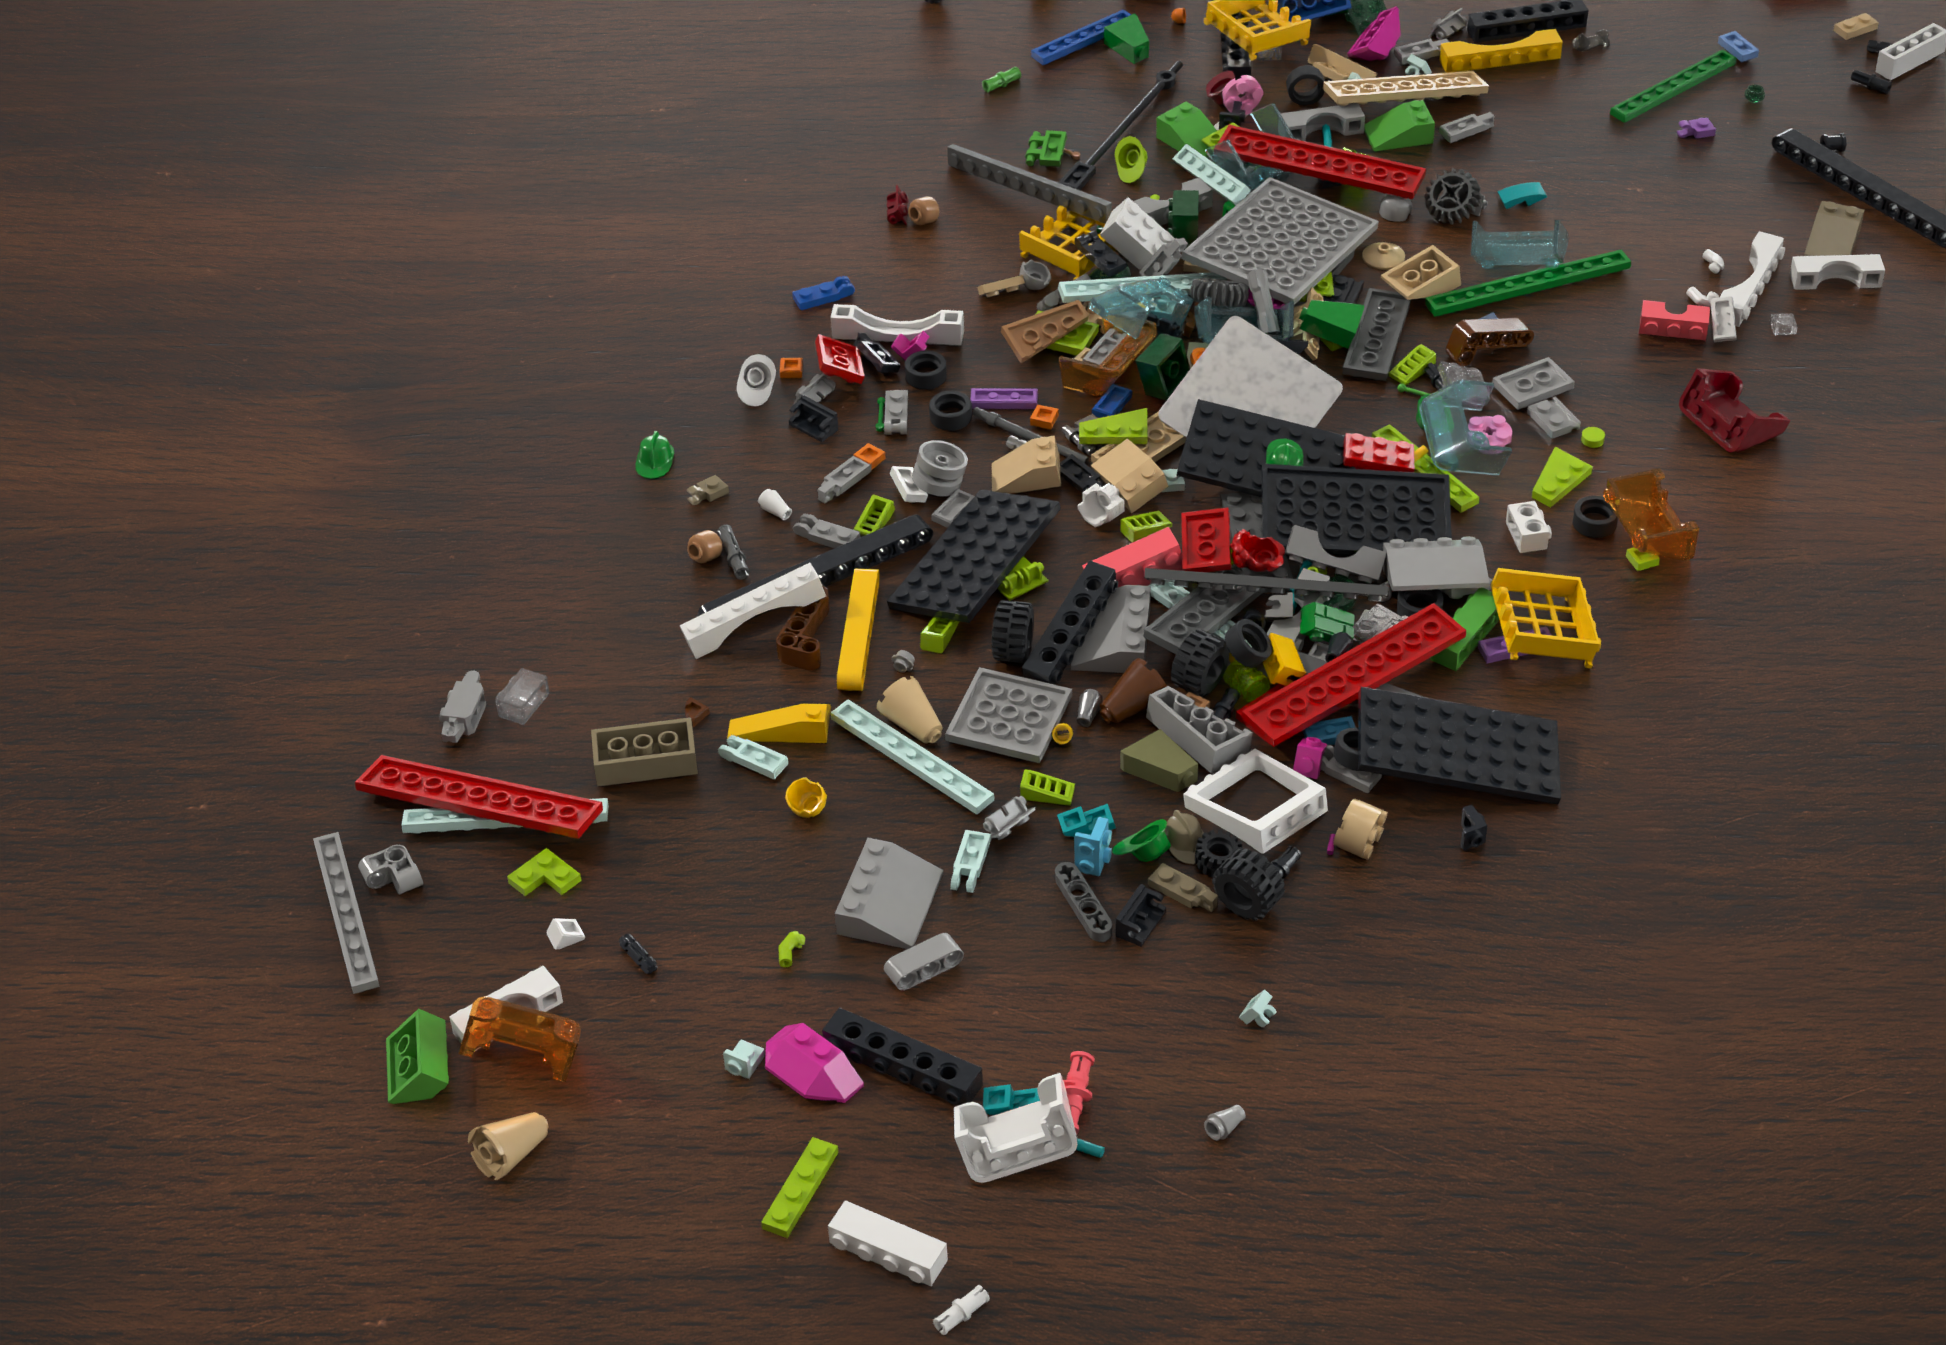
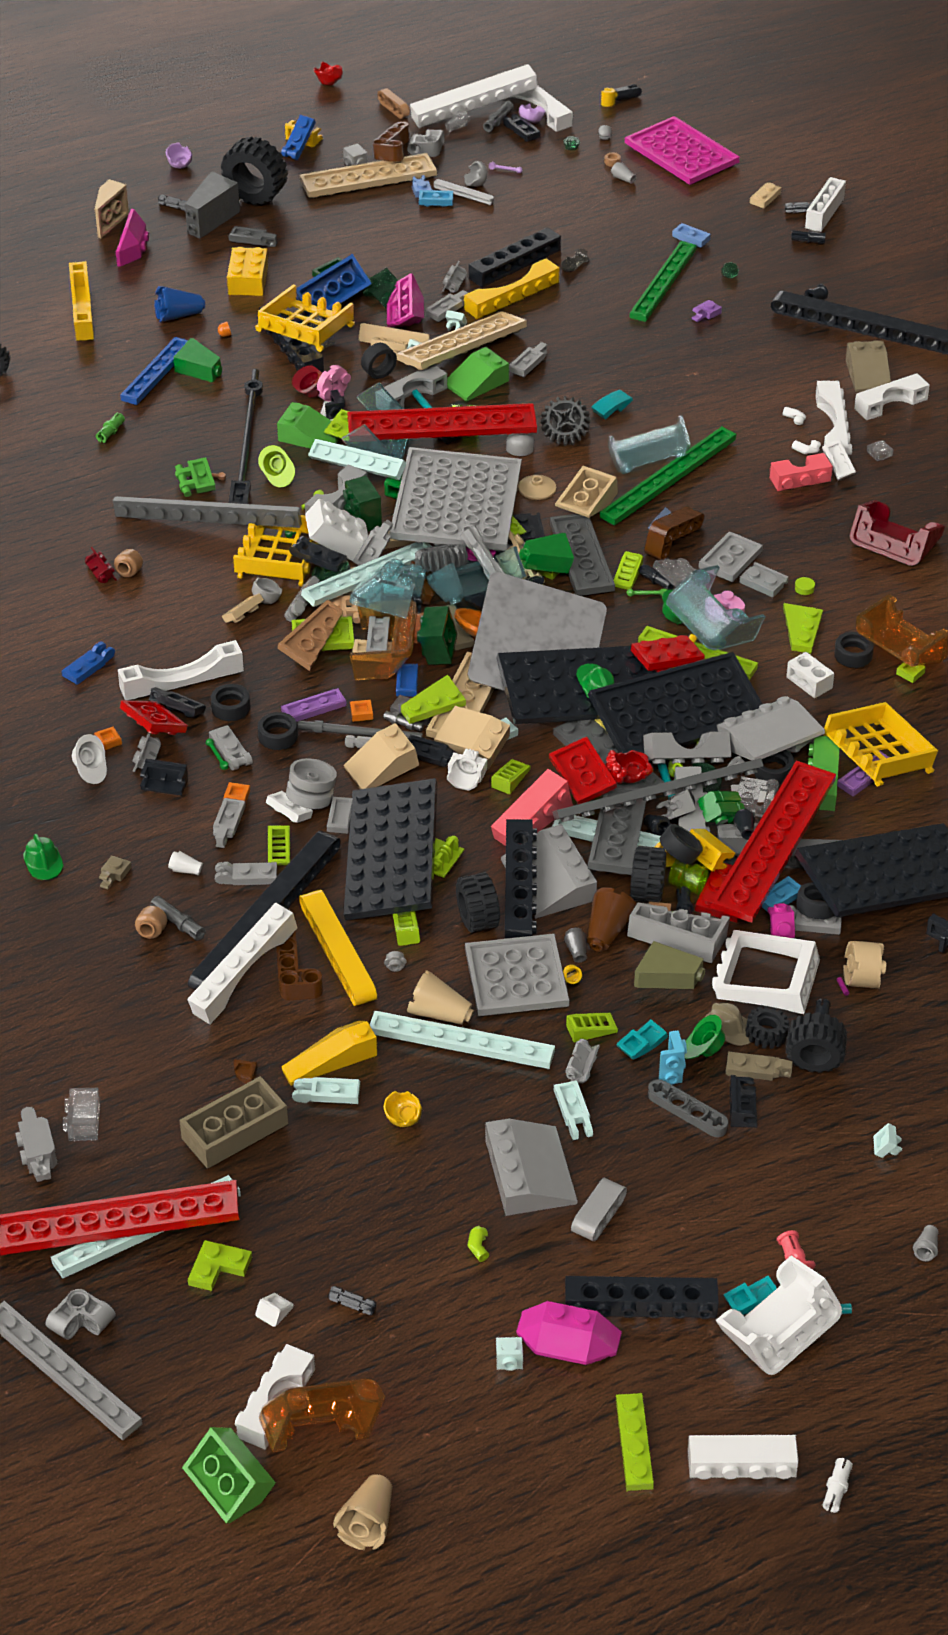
camera: 30 degrees left, 0 degrees up
(905, 348) = (205, 686): dark pink bracket -> none

